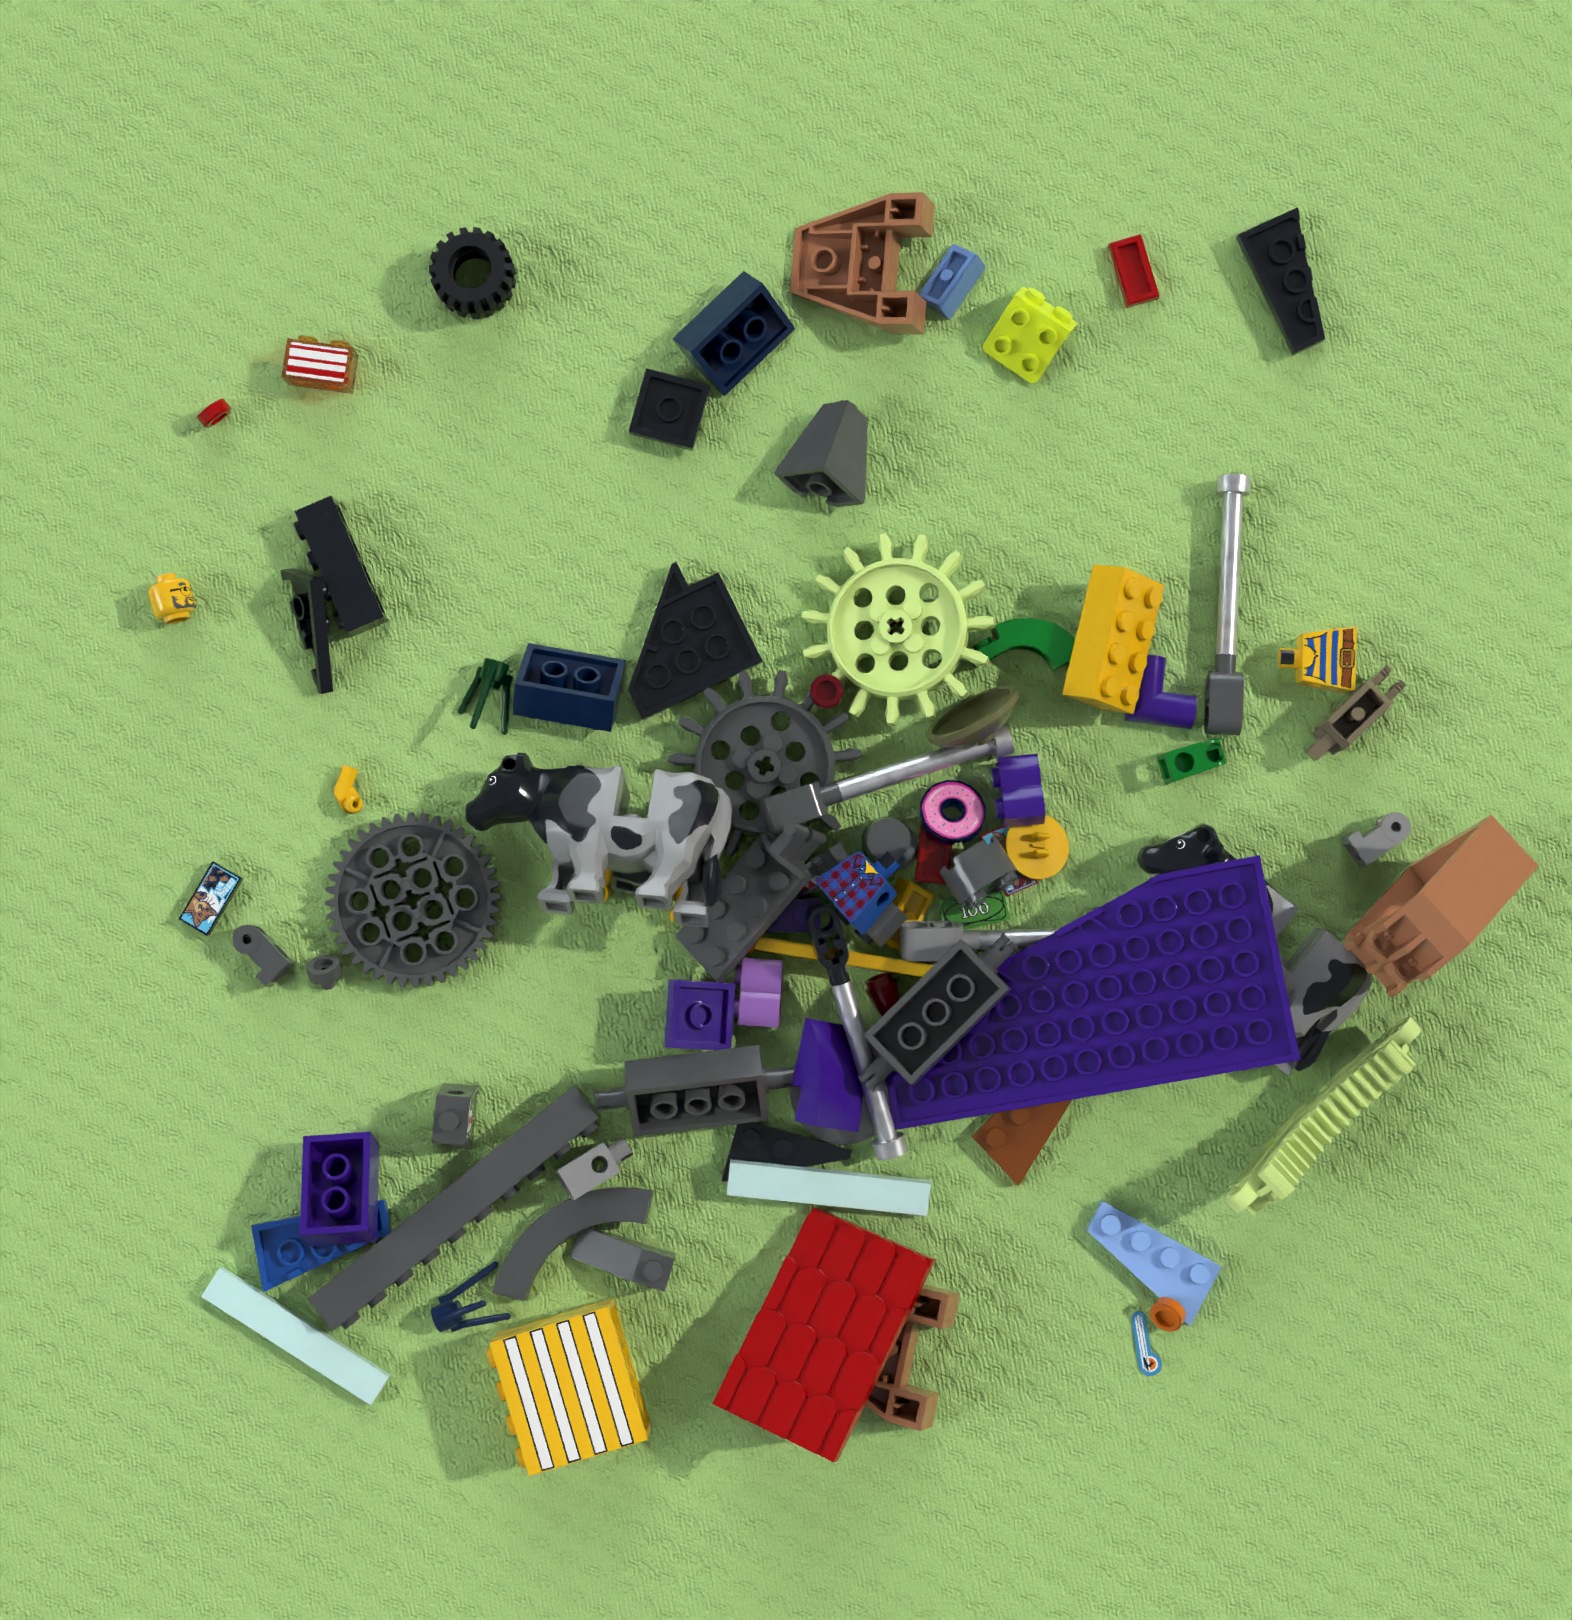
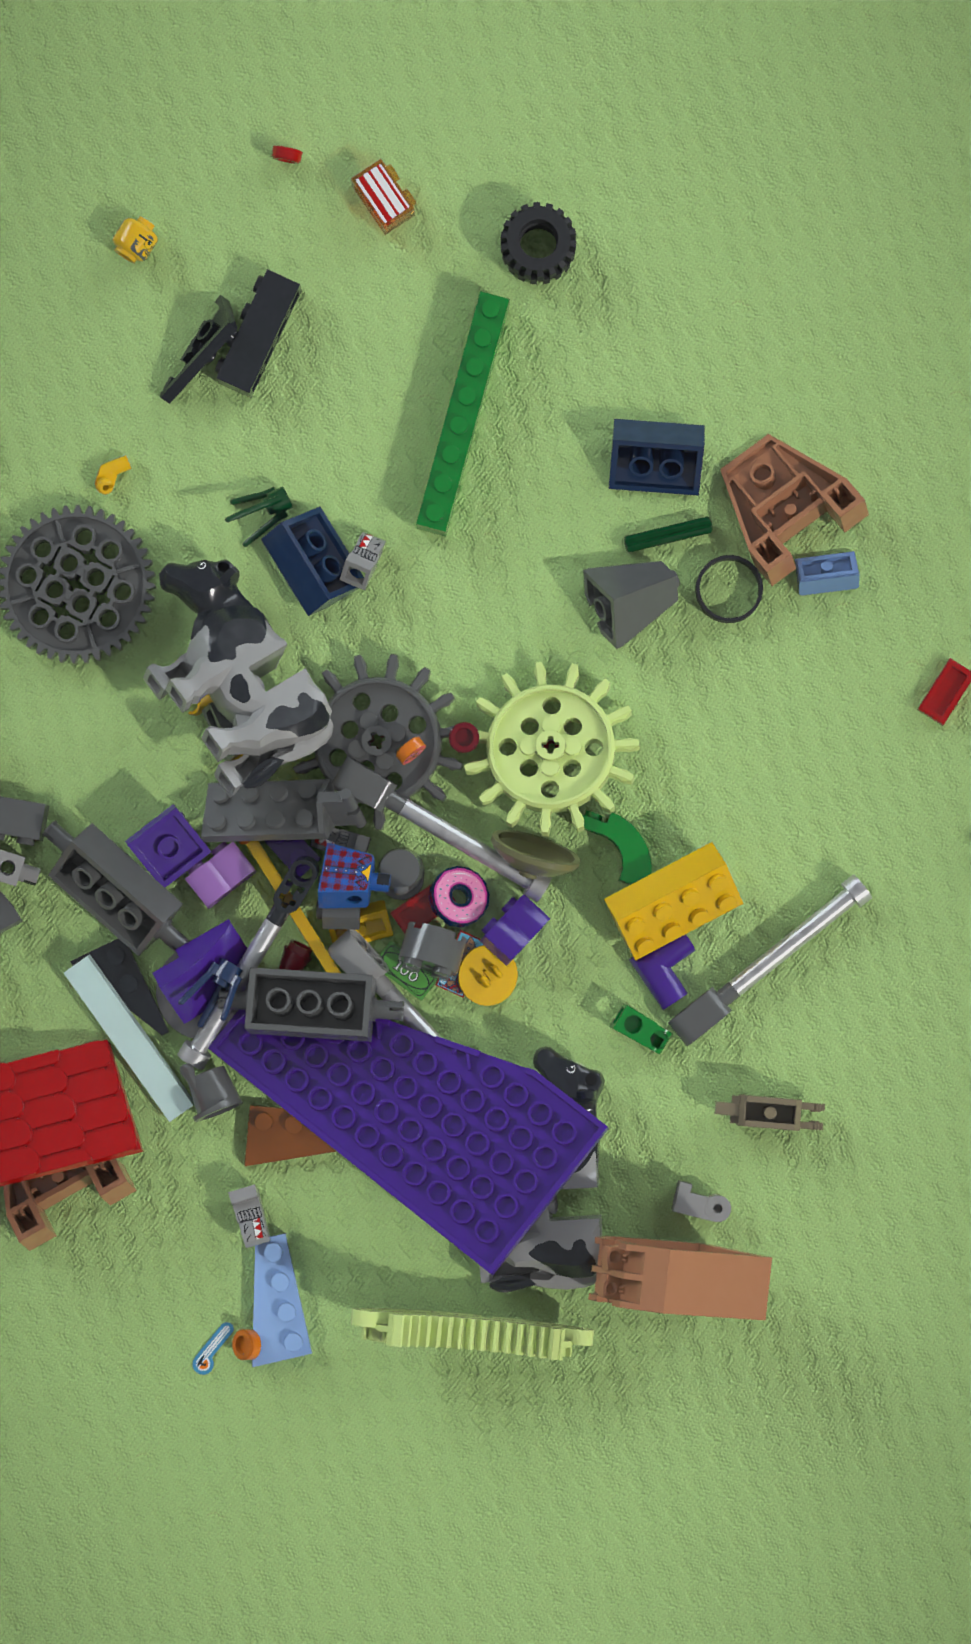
camera: 50 degrees right, 0 degrees up
(557, 458) = (463, 414): none -> green brick
(603, 644) = (363, 558): none -> light grey leg
(669, 409) = (565, 459): black plate -> none
(690, 644) = (416, 616): black wing -> none
(799, 744) = (410, 750): none -> orange tile
(805, 380) = (668, 534): none -> dark green axle
(850, 1062) = (224, 975): none -> dark blue plant
(900, 338) = (729, 558): none -> black tyre
(933, 1159) = (211, 1091): none -> dark grey hat
(1029, 334) = (837, 658): neon yellow bracket -> none
(1065, 1217) = (250, 1215): none -> light grey leg
(1323, 659) = (790, 1058): torso -> none

